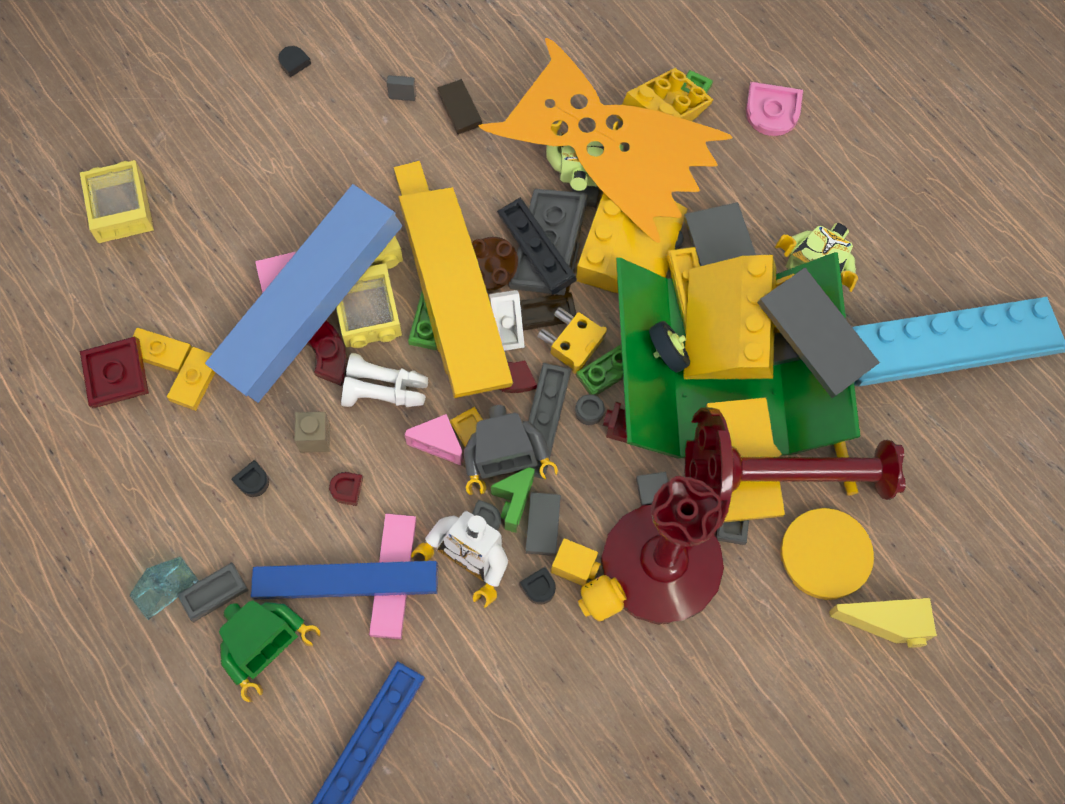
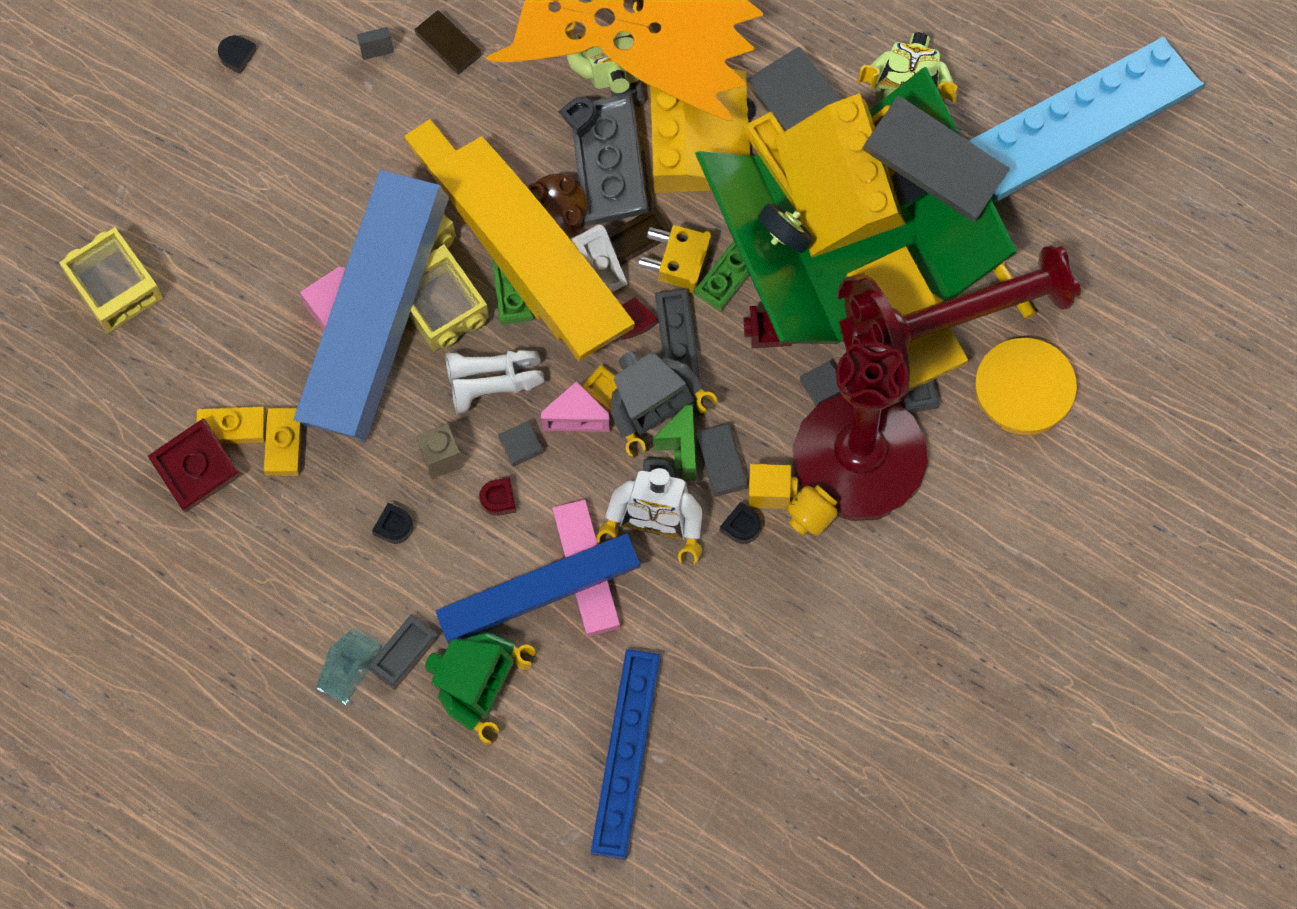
camera: 15 degrees left, 0 degrees up
(329, 354) = (420, 365): dark red tile -> none
(383, 449) = (520, 443): none -> dark grey tile
(537, 246) = (599, 169): black tile -> none
(539, 197) = (580, 115): none -> black tile
(589, 409) = (723, 325): dark grey tile -> none
(896, 620) = (1114, 428): light yellow slope -> none

